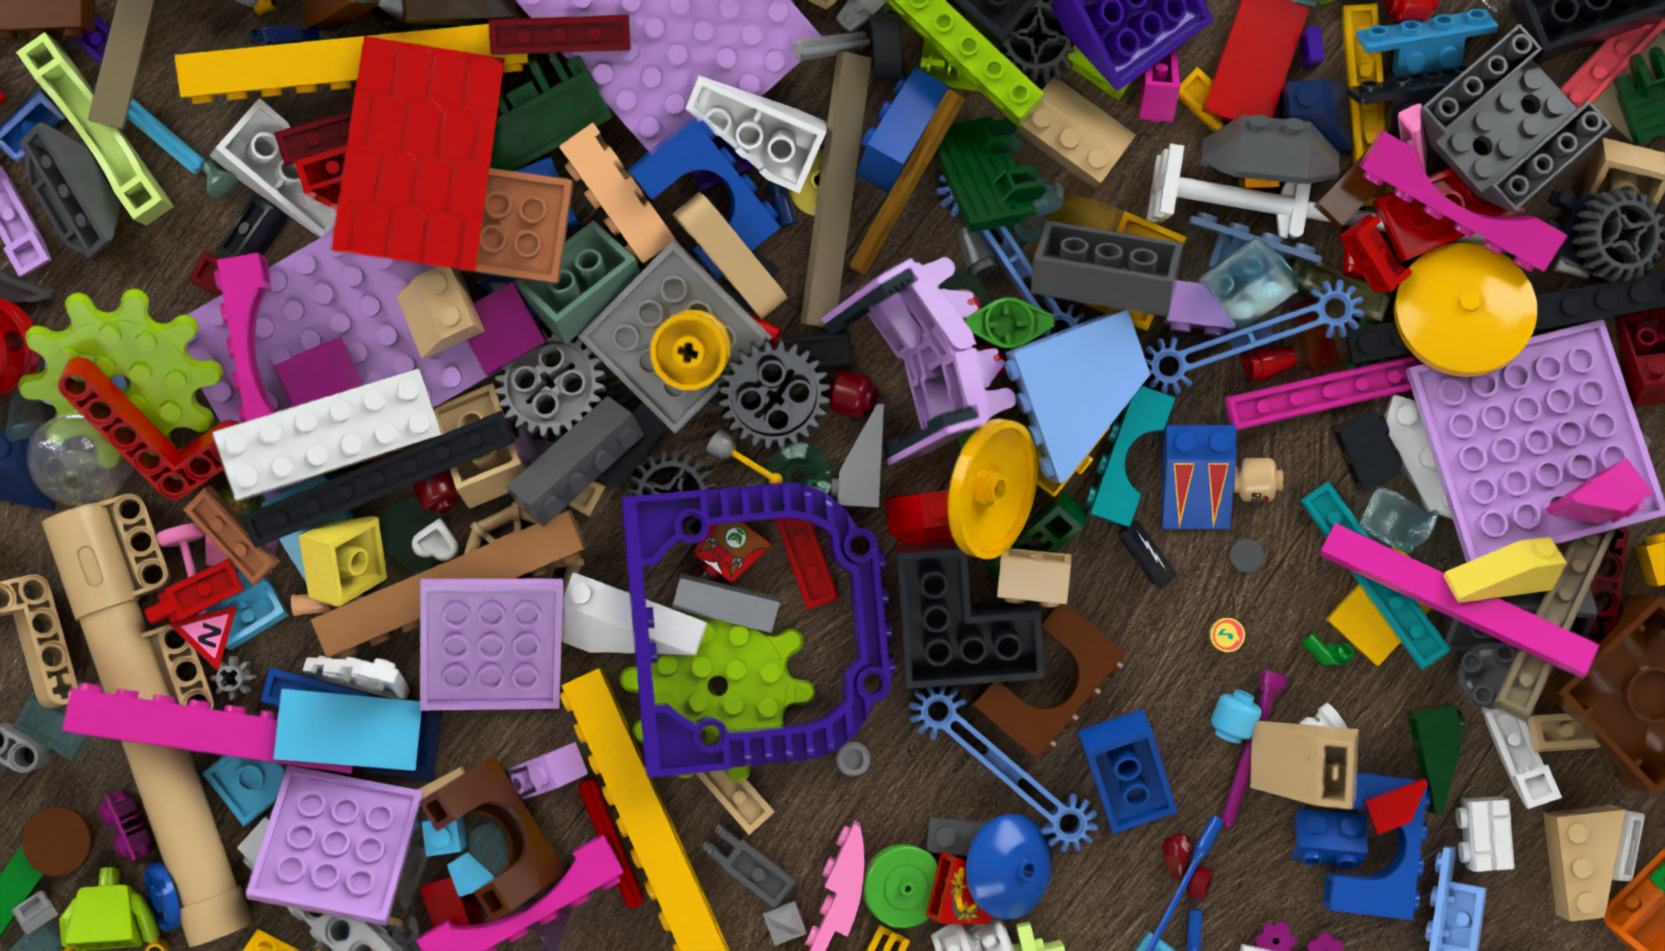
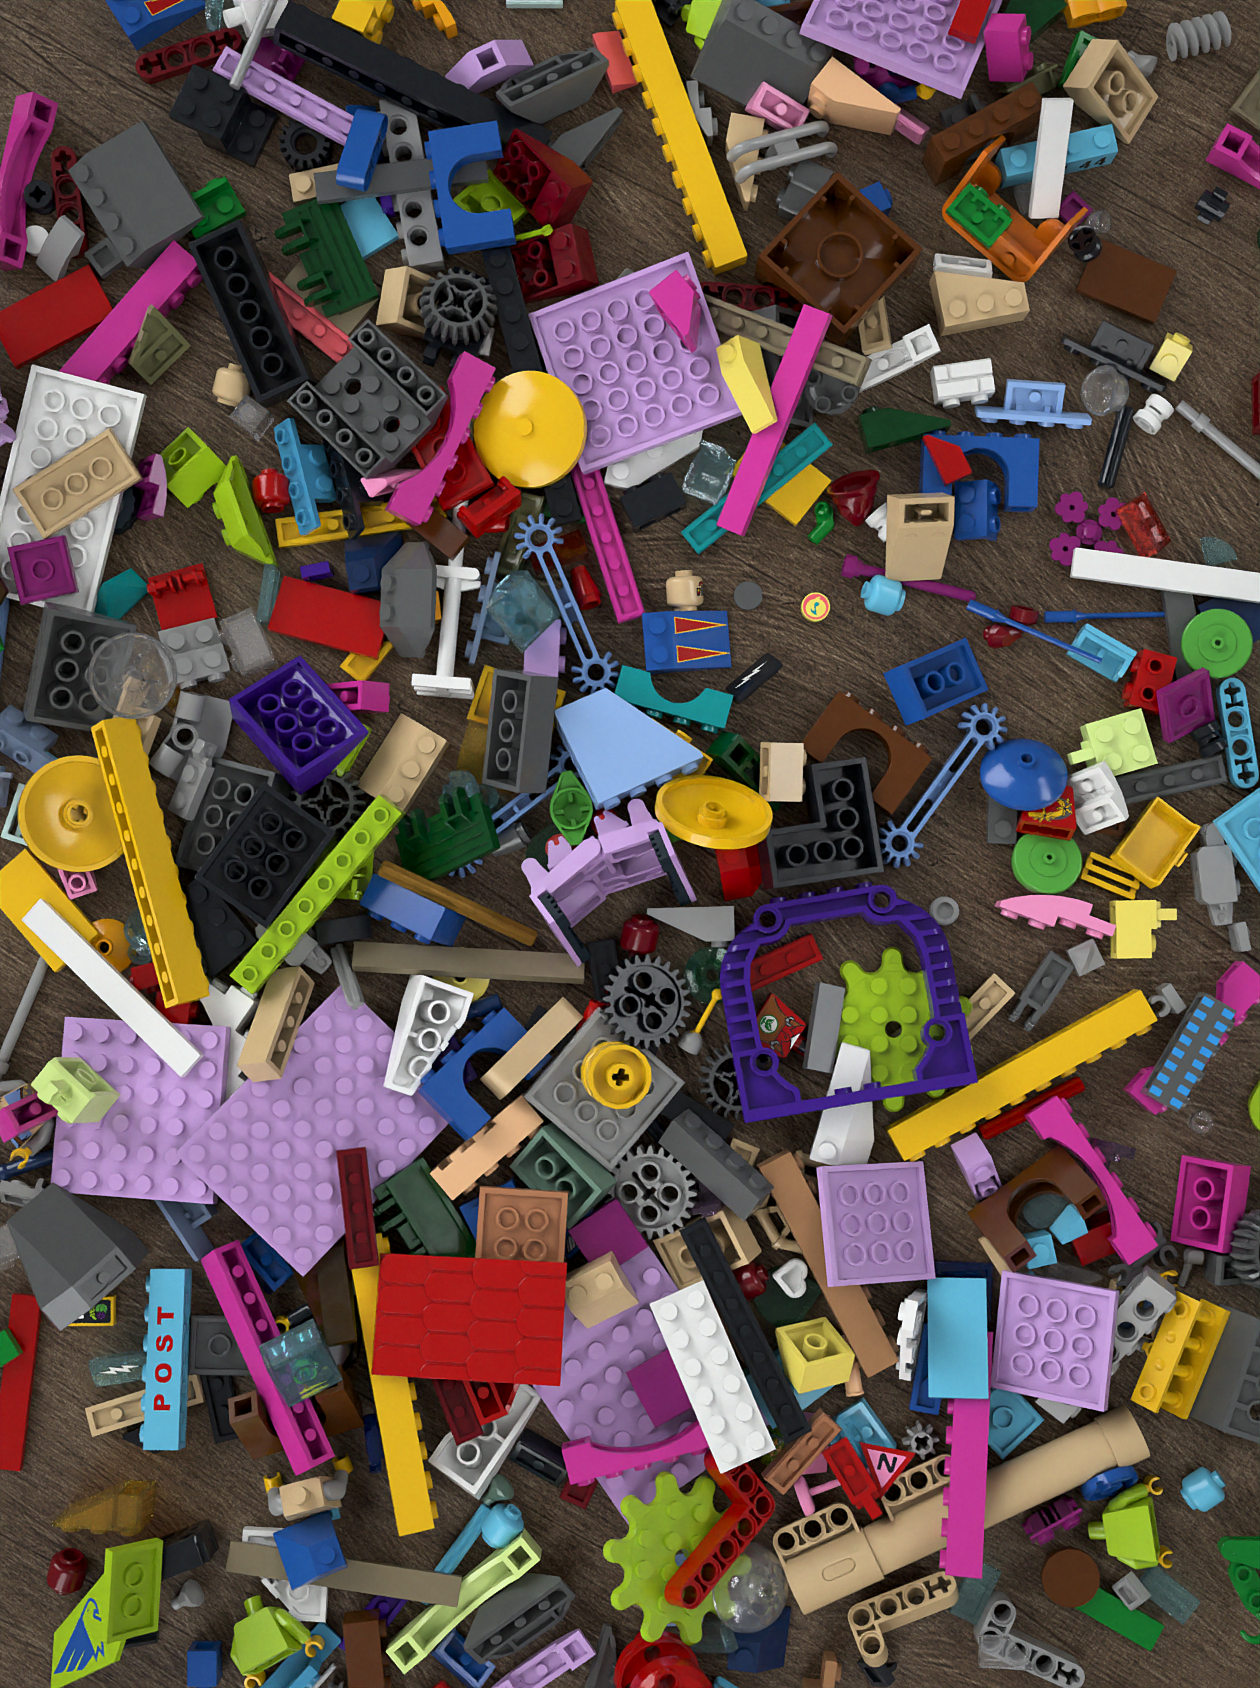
camera: 90 degrees left, 0 degrees up
(177, 180) = (502, 1525): none -> medium azure head
(1358, 692) = (855, 495): none -> dark red piece

